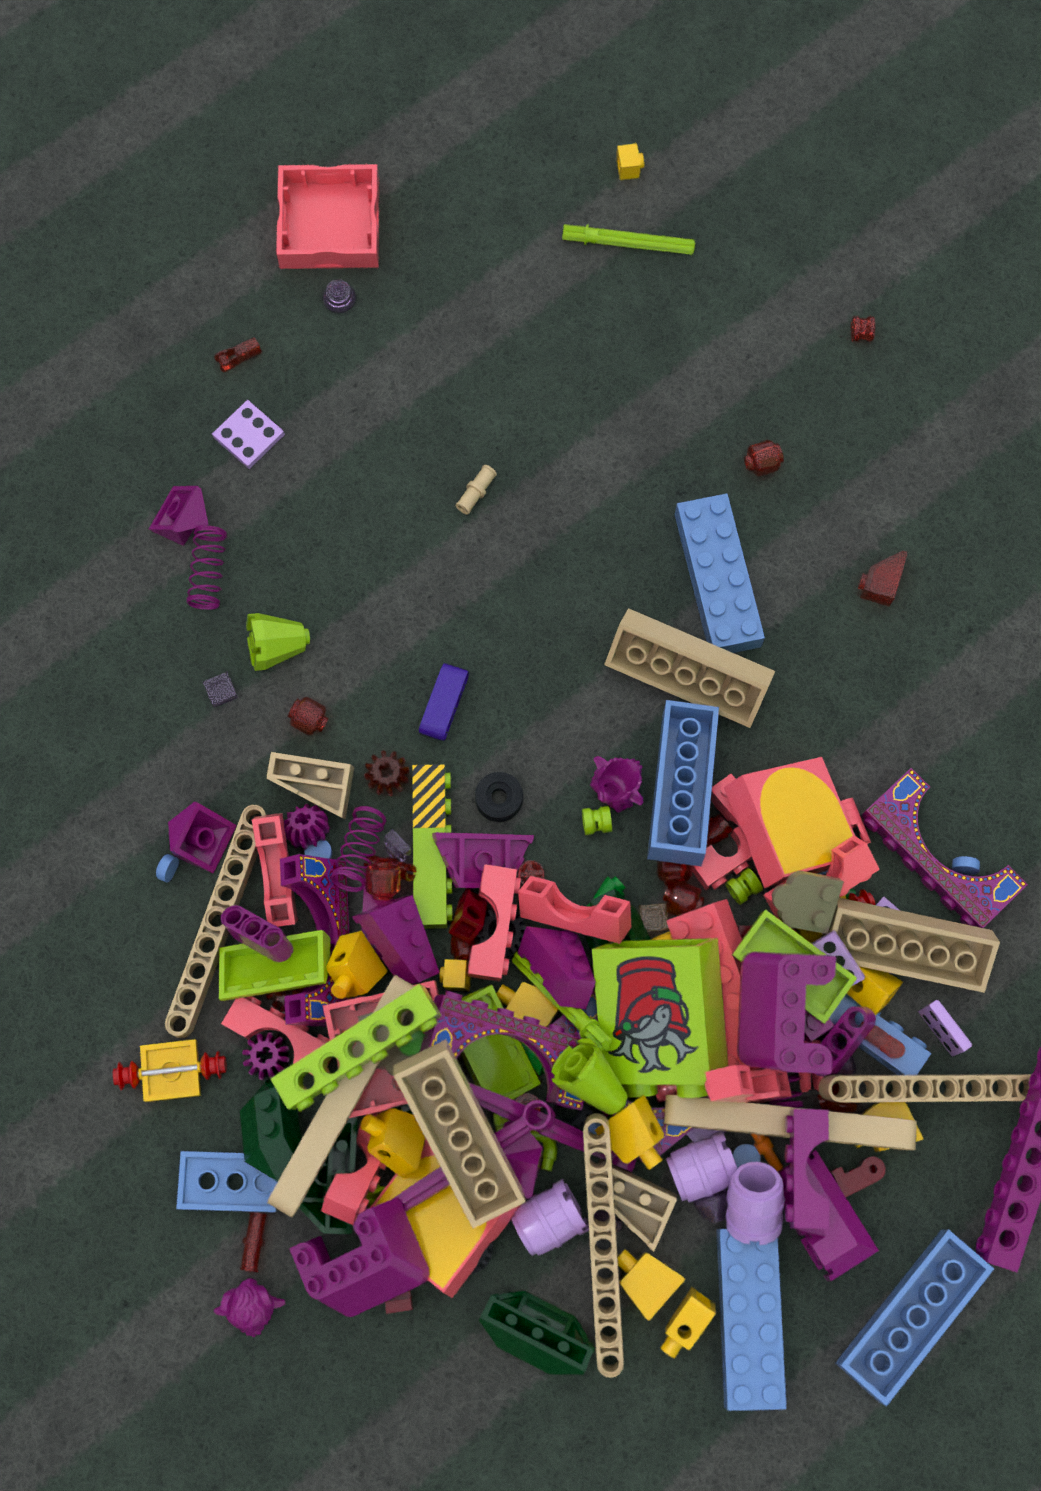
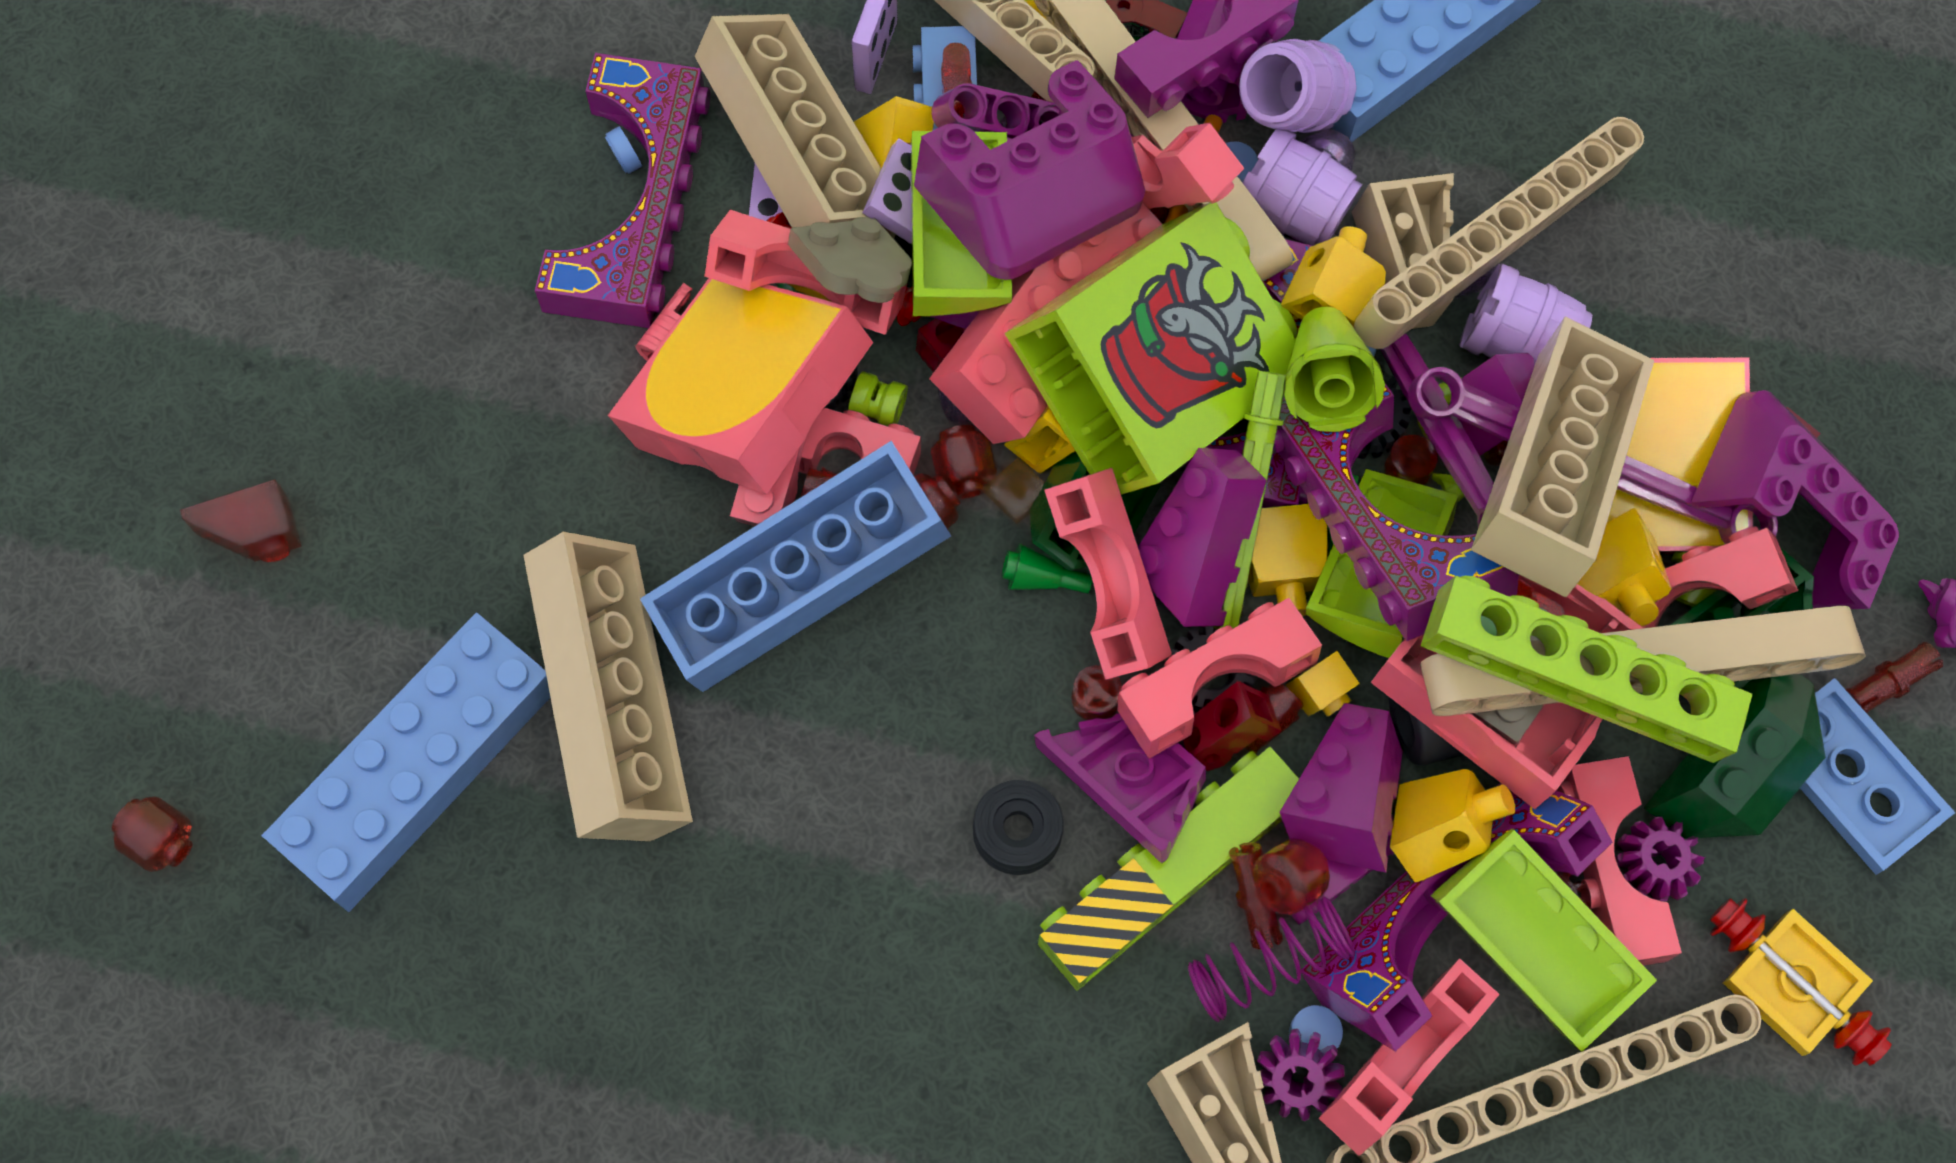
camera: 130 degrees left, 5 degrees down
(257, 933) = (1533, 1020): magenta beam -> none
(396, 846) = (1224, 903): clear purple plate -> none
(397, 769) = (1135, 1030): clear red gear -> none
(442, 702) = (935, 1022): dark purple beam -> none
(537, 1333) = (1662, 244): dark green wedge -> none
(597, 820) = (941, 660): lime wheel -> none
(617, 782) = (864, 668): magenta hair -> none
(647, 1282) = (1485, 161): yellow torso -> none
(694, 1312) = (1489, 87): yellow torso -> none

